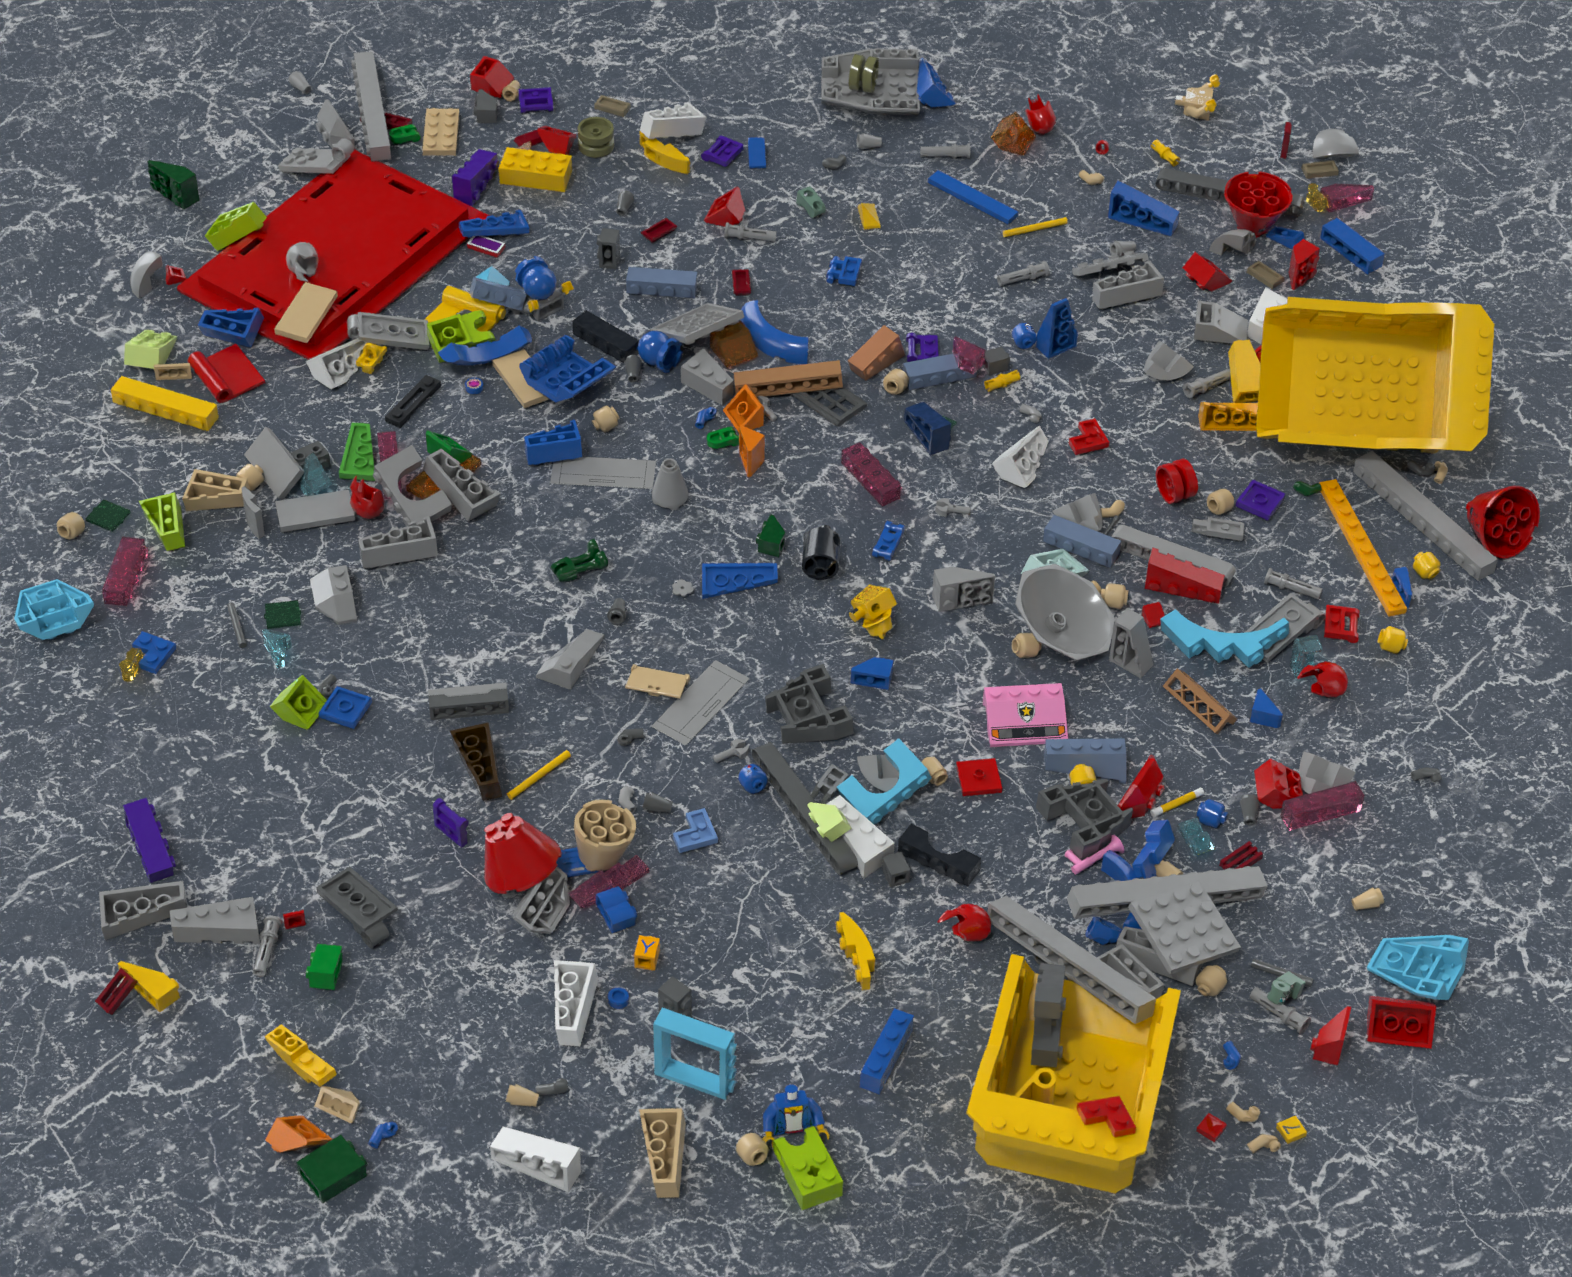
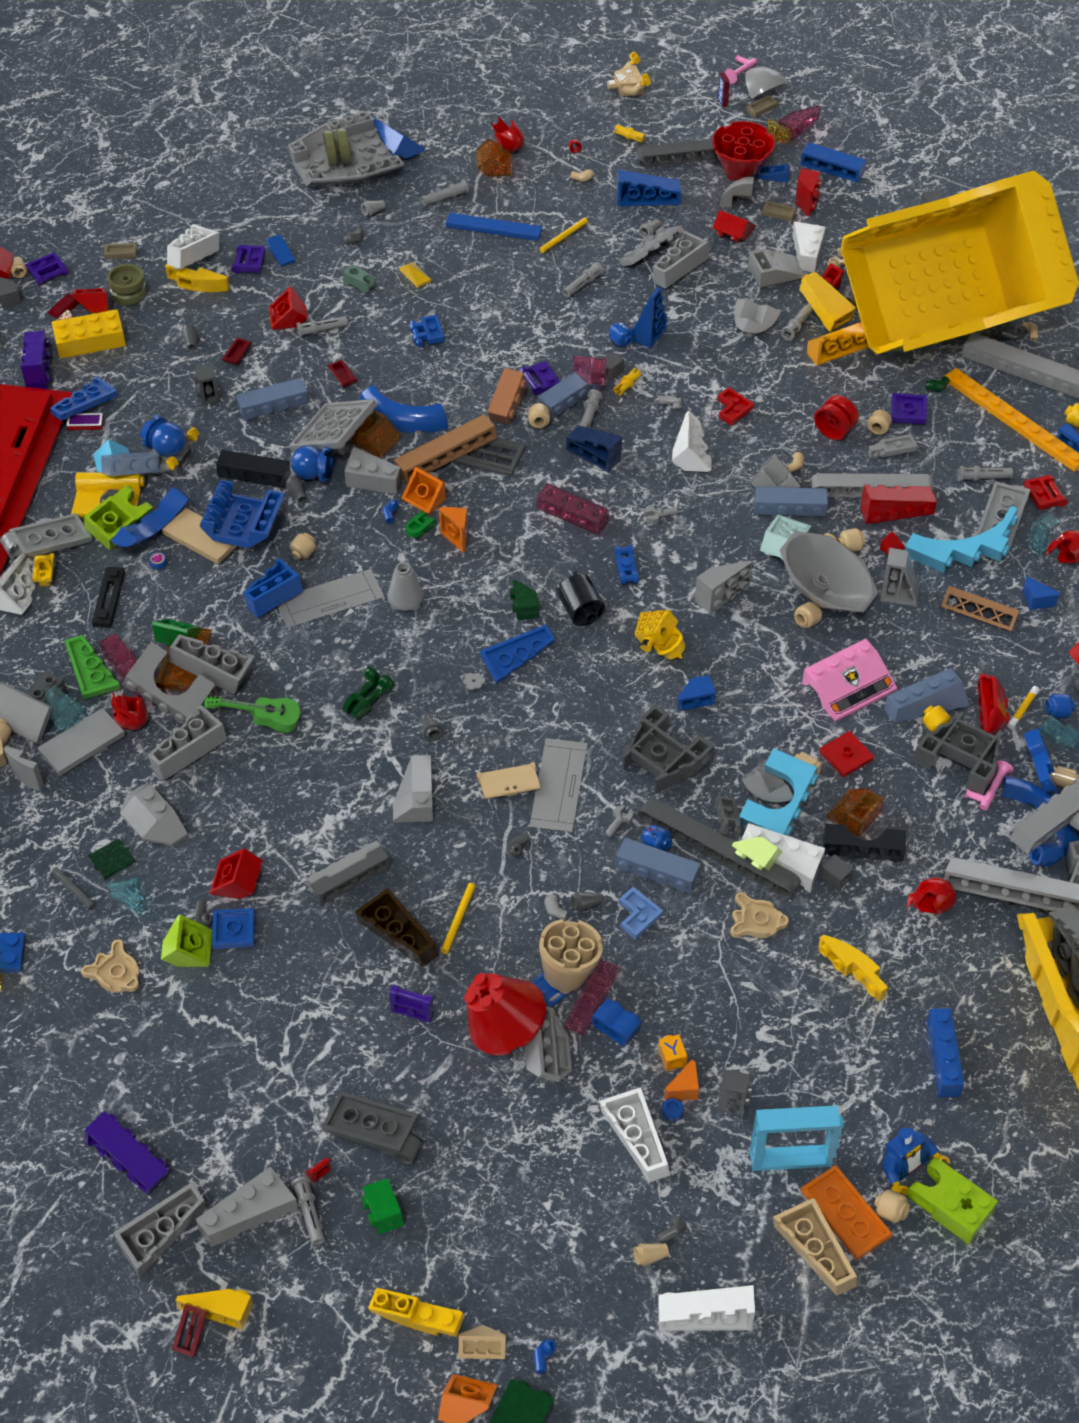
camera: 25 degrees left, 5 degrees up
(229, 703) = (114, 971): none -> tan tile
(375, 666) = (236, 875): none -> red slope
(492, 550) = (279, 713): none -> bright green piece
(640, 981) = (684, 1084): none -> orange slope
(711, 1139) = (847, 1212): none -> orange tile
(739, 800) = (657, 865): none -> sand blue brick
(798, 879) = (756, 918): none -> tan tile
(951, 391) = (591, 406): none -> light grey pin
(951, 827) = (857, 810): none -> clear orange slope
(1334, 123) = (732, 74): none -> bright pink piece

